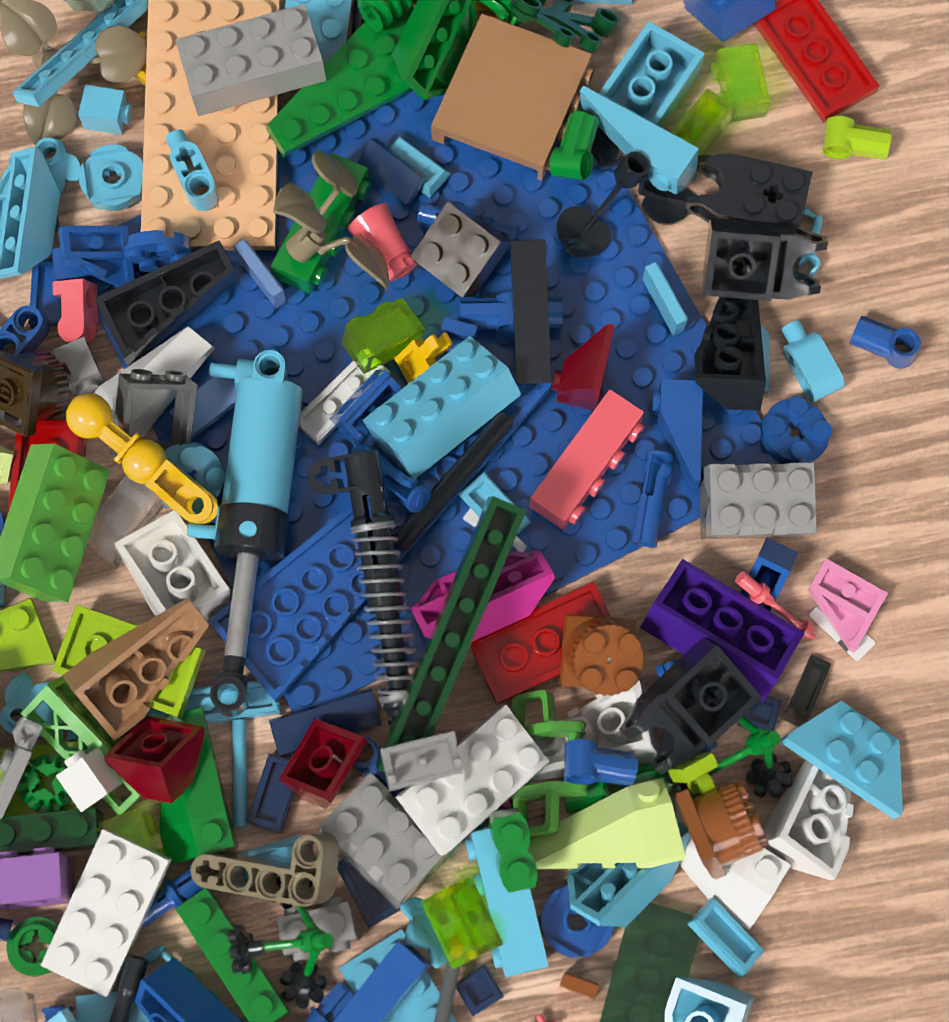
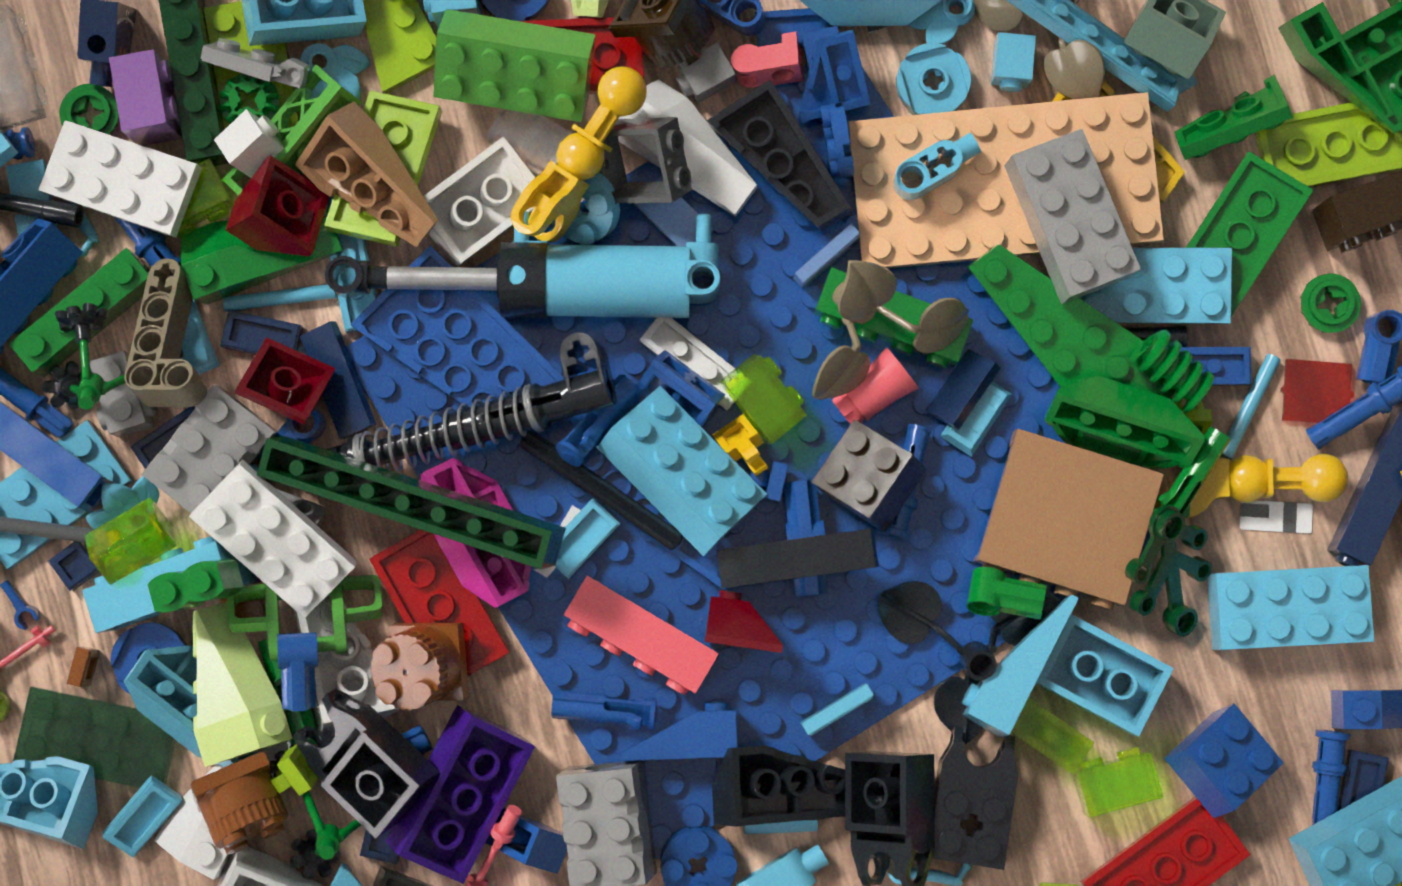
camera: 85 degrees right, 10 degrees up
(421, 761) = (274, 481): light grey hinge -> none

